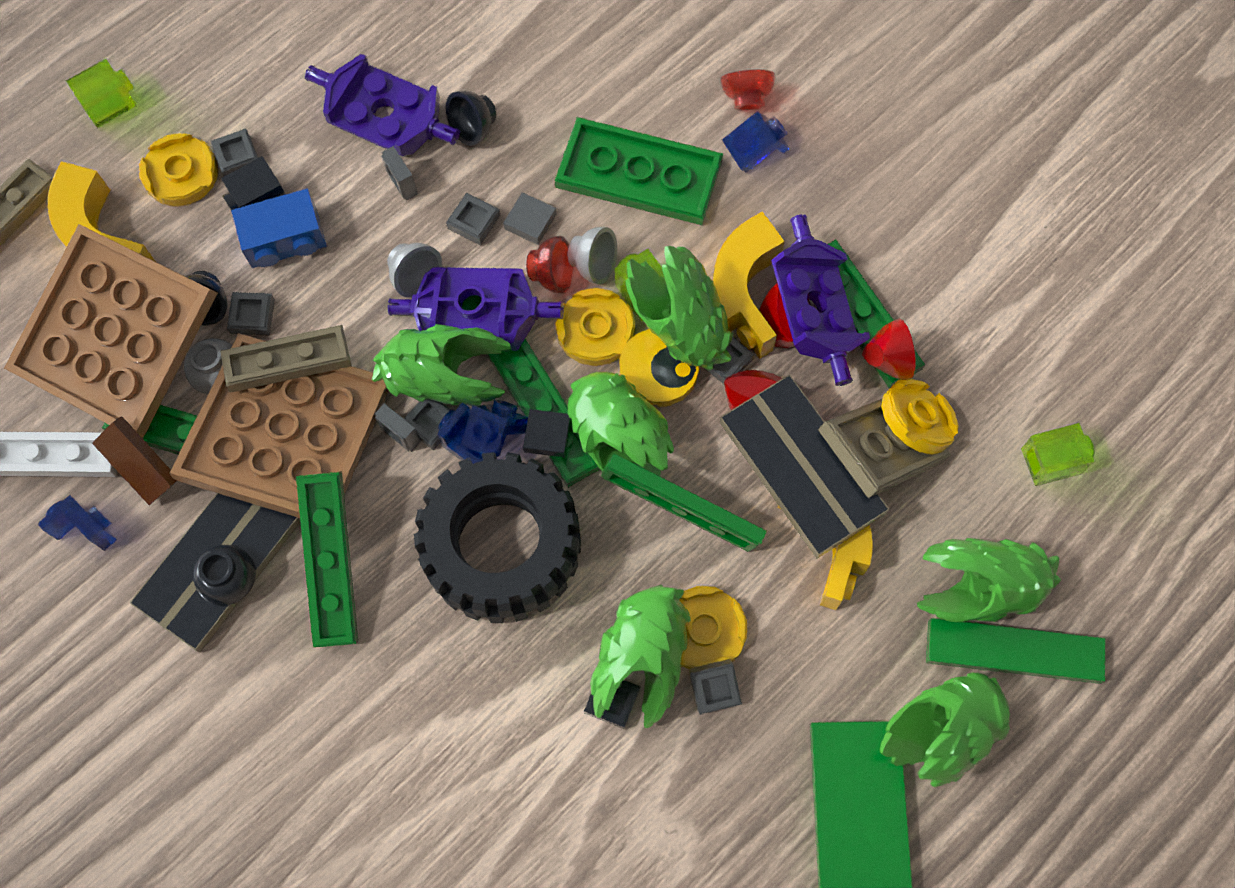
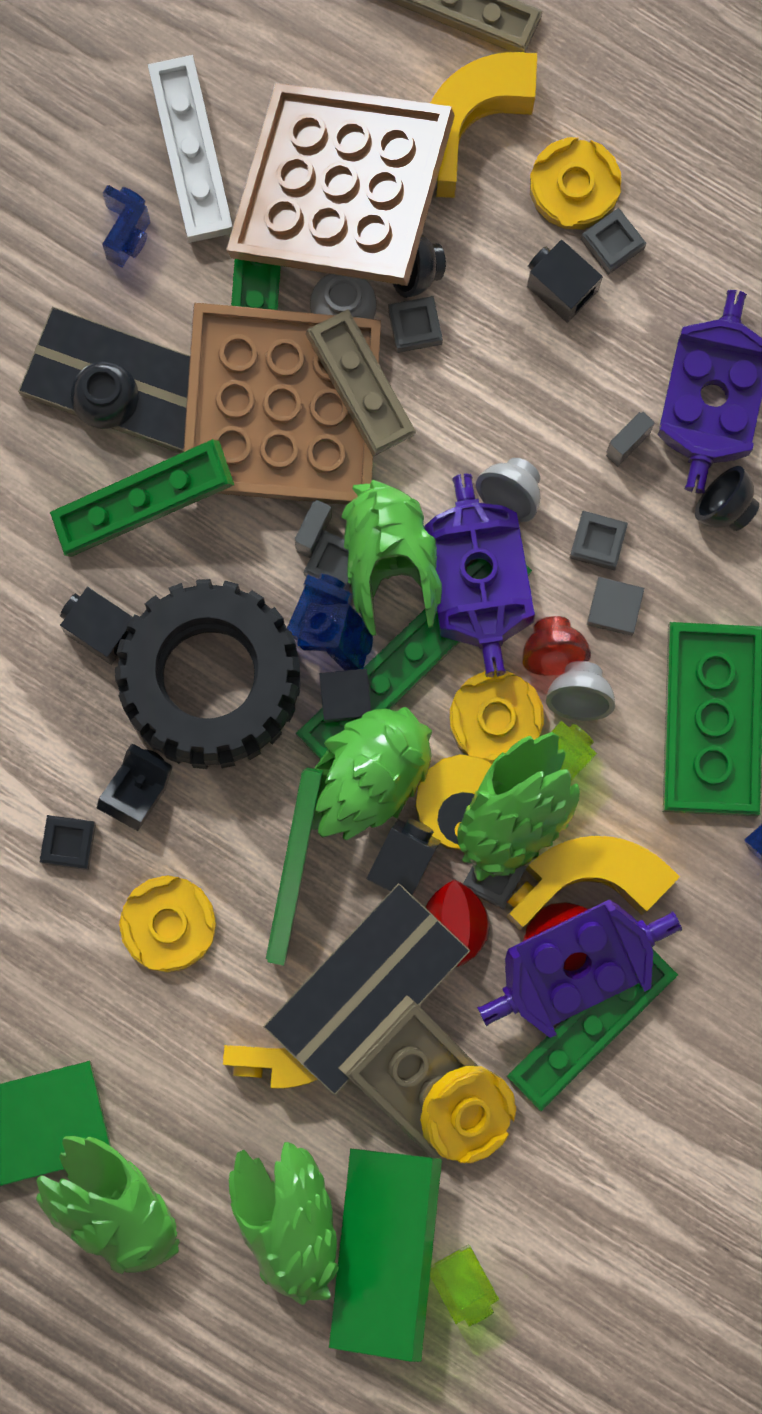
camera: 70 degrees right, 10 degrees up
(102, 92) = (647, 64): clear neon green brick -> none
(134, 460) = (203, 260): reddish brown tile -> none
(279, 229) = (522, 324): blue brick -> none
(426, 626) = (95, 623): none -> black brick
(577, 624) = (135, 787): none -> black bracket
(645, 637) = (122, 858): bright green head -> none
(695, 416) = (404, 856): none -> black brick
(715, 686) = (104, 948): dark grey tile -> none
(892, 350) = (532, 1062): red piece -> none
(1016, 651) = (221, 1277): green tile -> none
(1026, 504) = (385, 1254): none -> green tile

